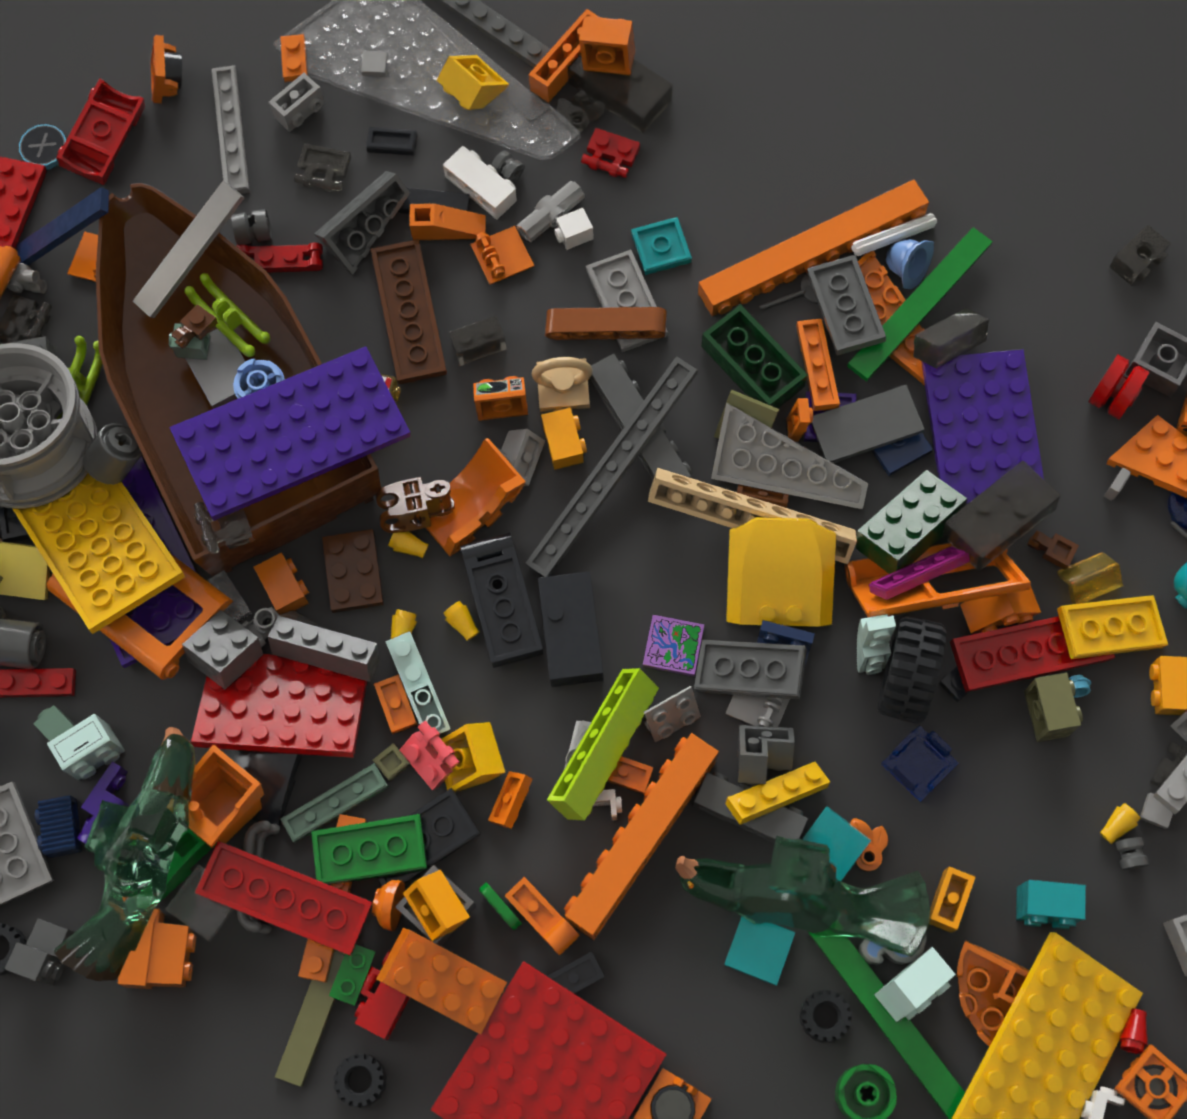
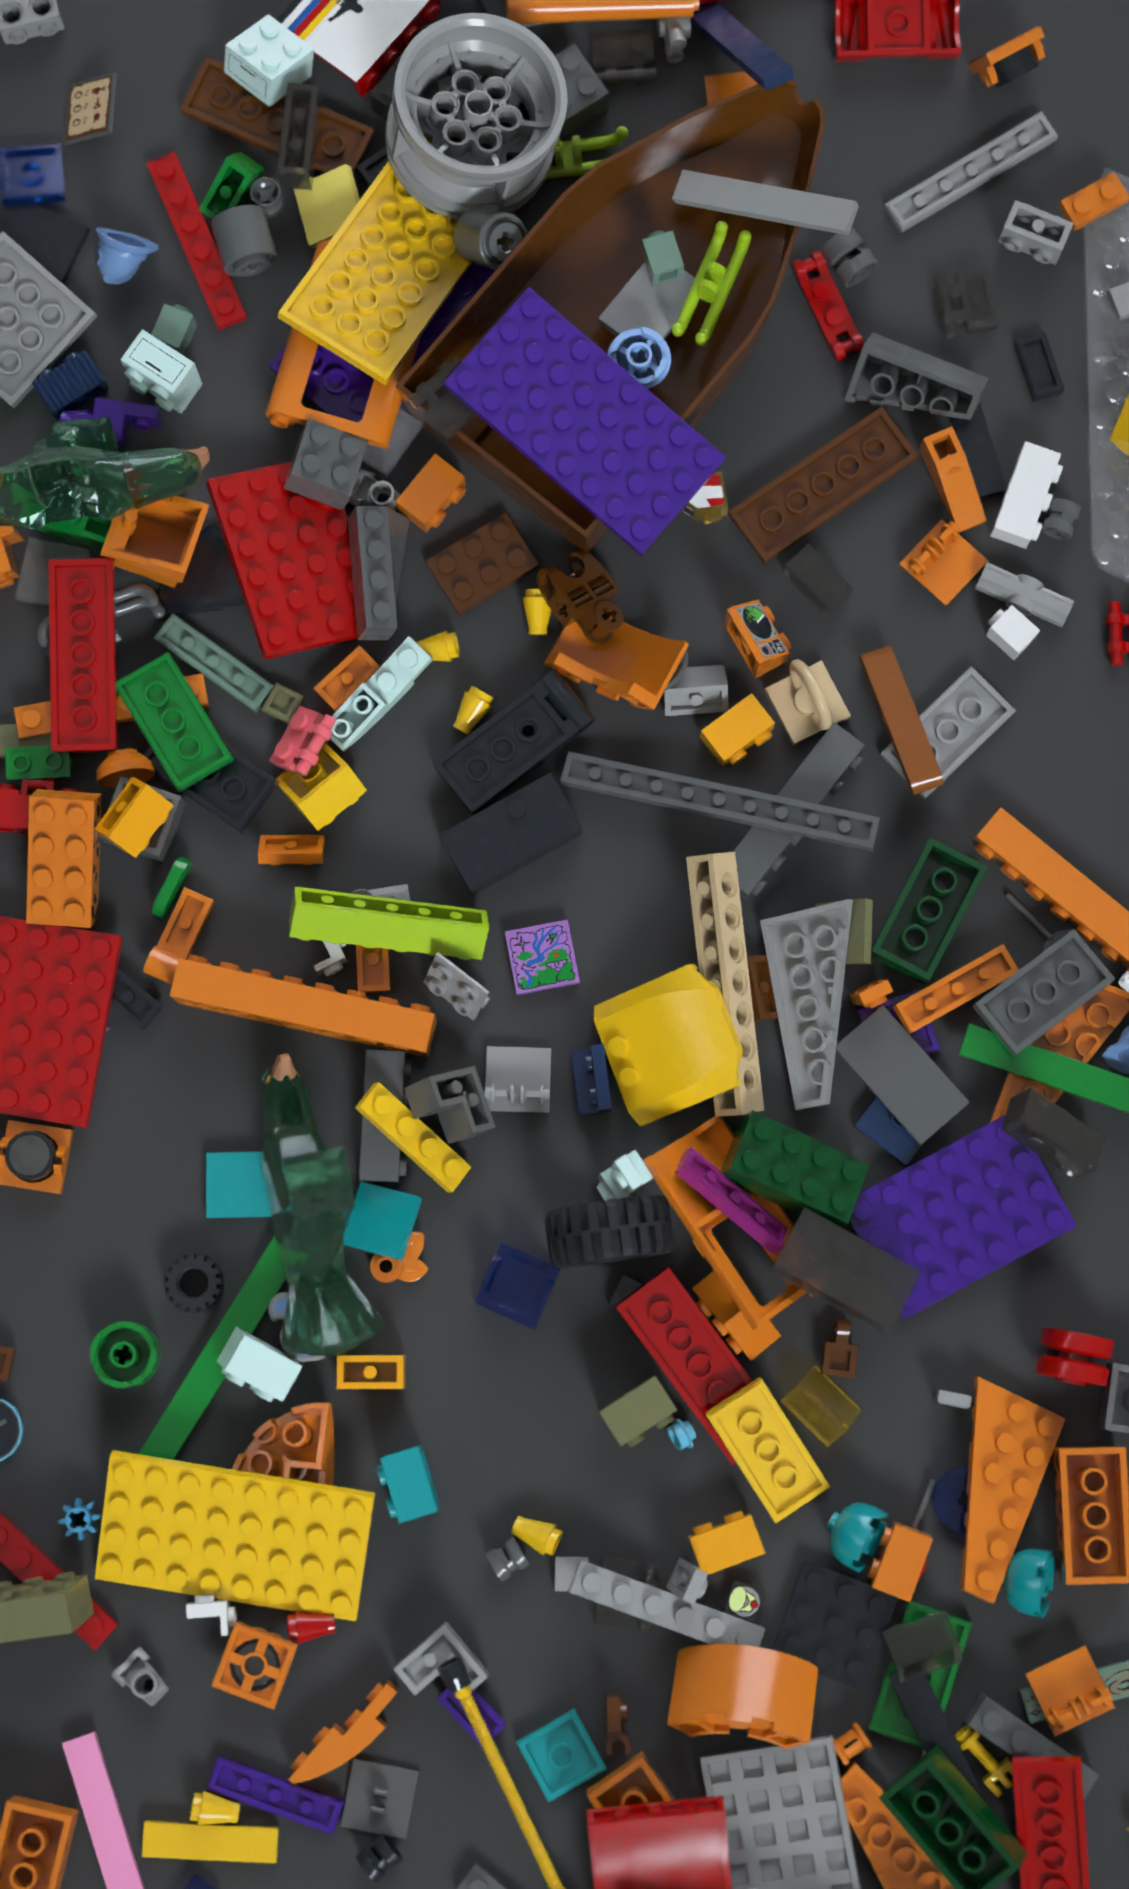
camera: 65 degrees right, 10 degrees up
(194, 324) = (680, 255): reddish brown plate -> none
(661, 246) = (1038, 744): teal tile -> none
(750, 669) = (545, 1053): dark grey tile -> none

